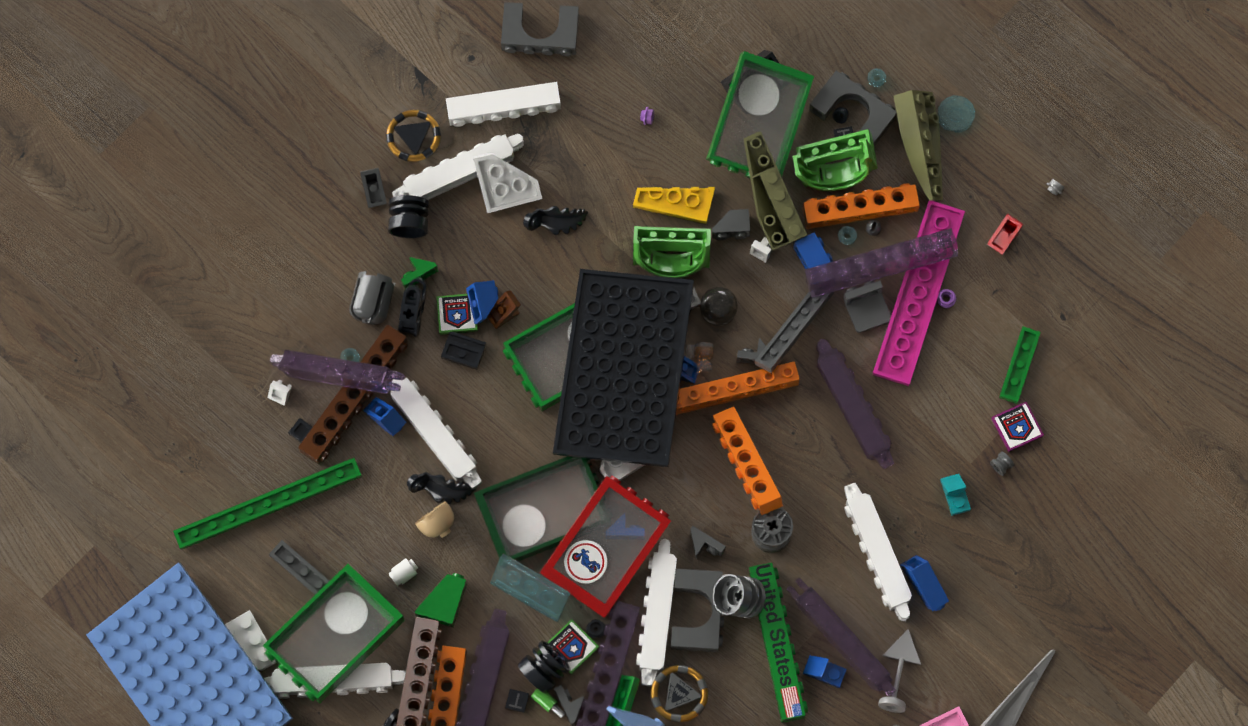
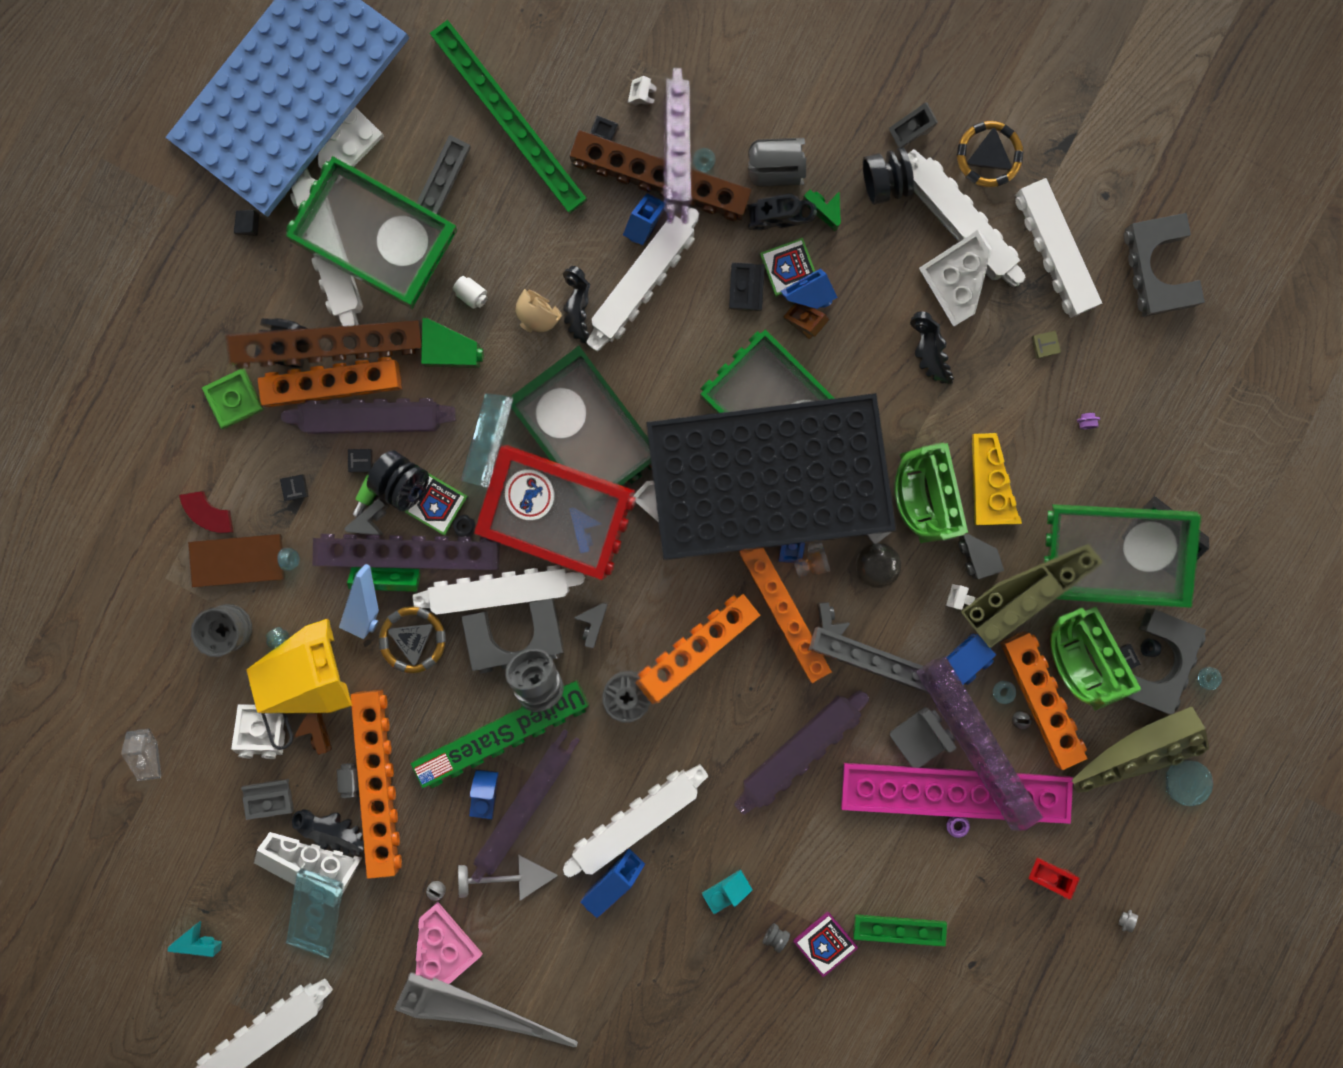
camera: 70 degrees right, 15 degrees up
(577, 132) = (1046, 344): none -> olive tile

